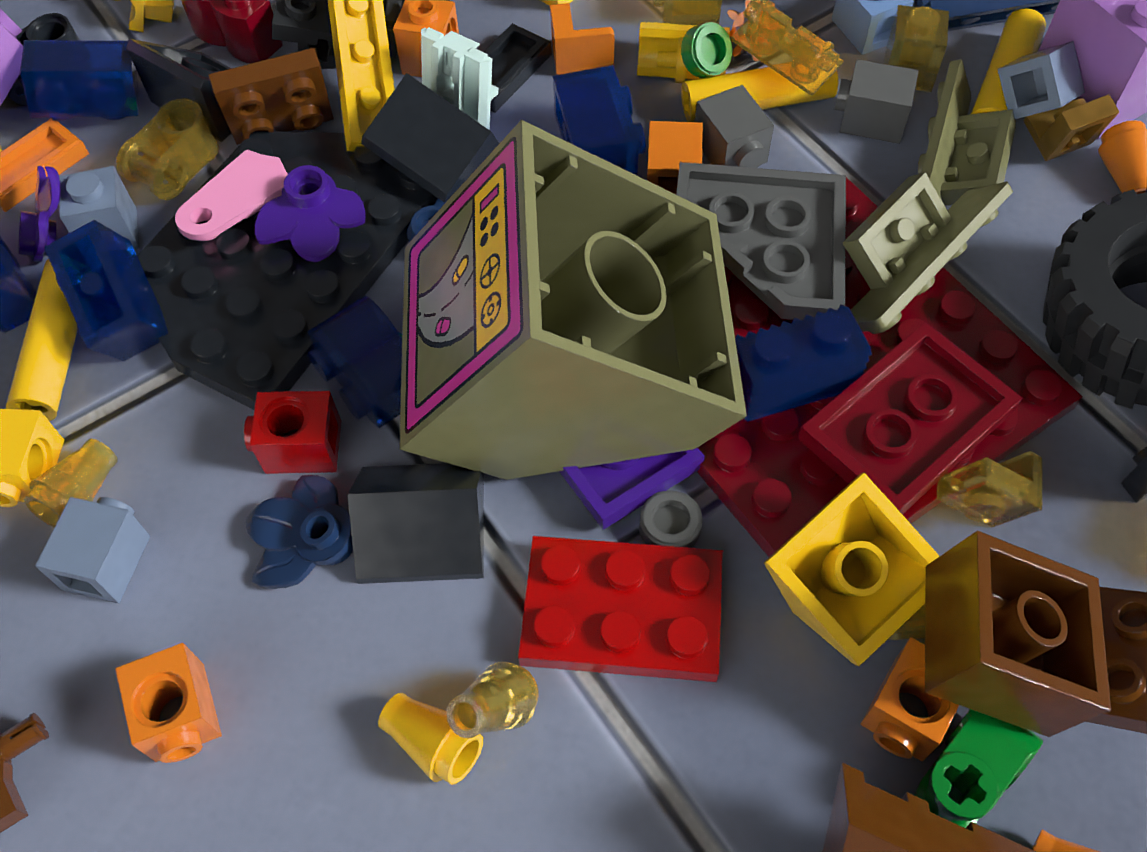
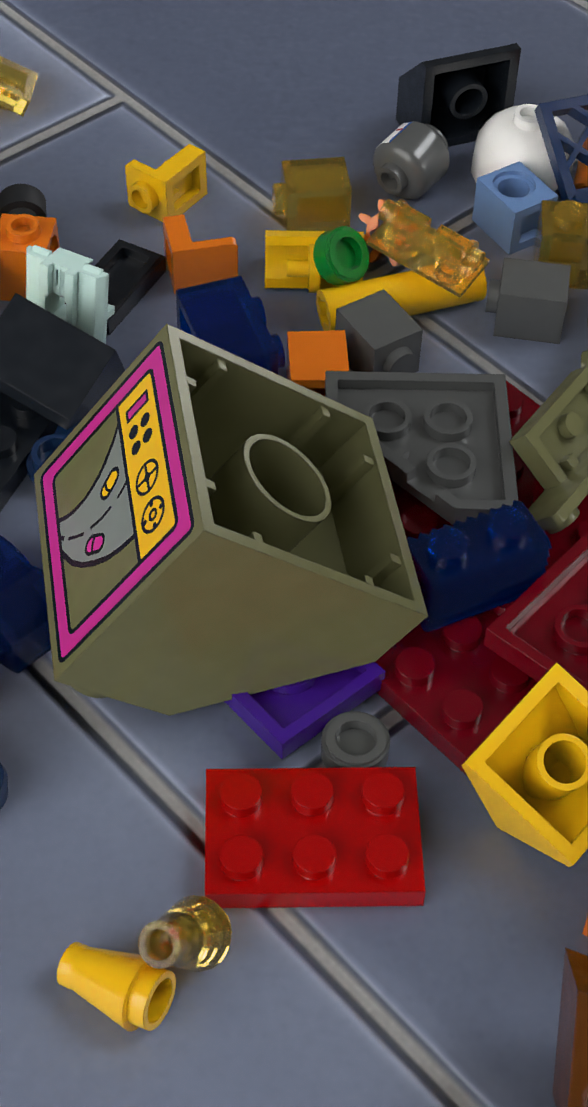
camera: 10 degrees left, 10 degrees down
(417, 523) = (76, 769): black slope -> none

